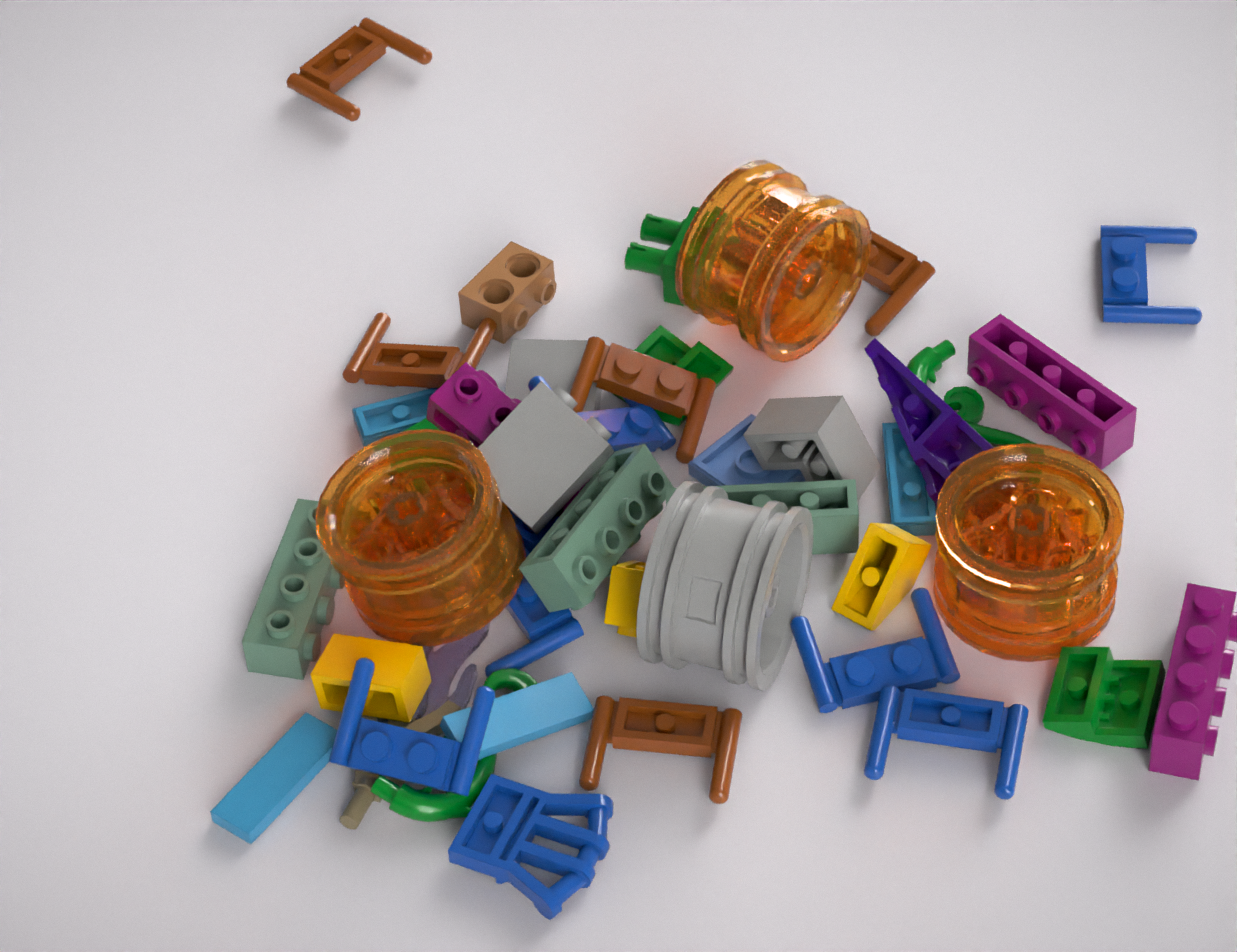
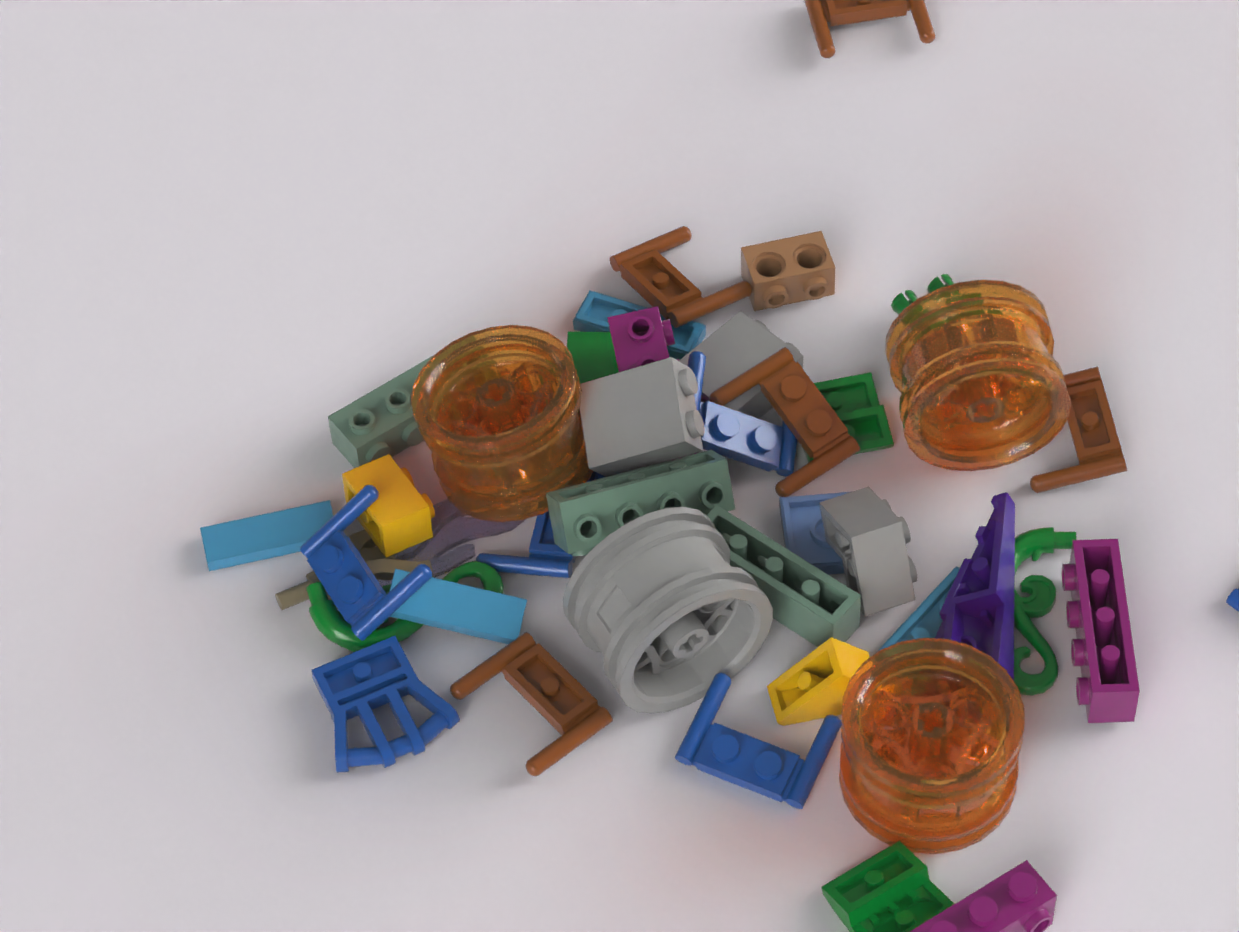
camera: 40 degrees right, 5 degrees up
(949, 722) = (751, 835): blue plate -> none

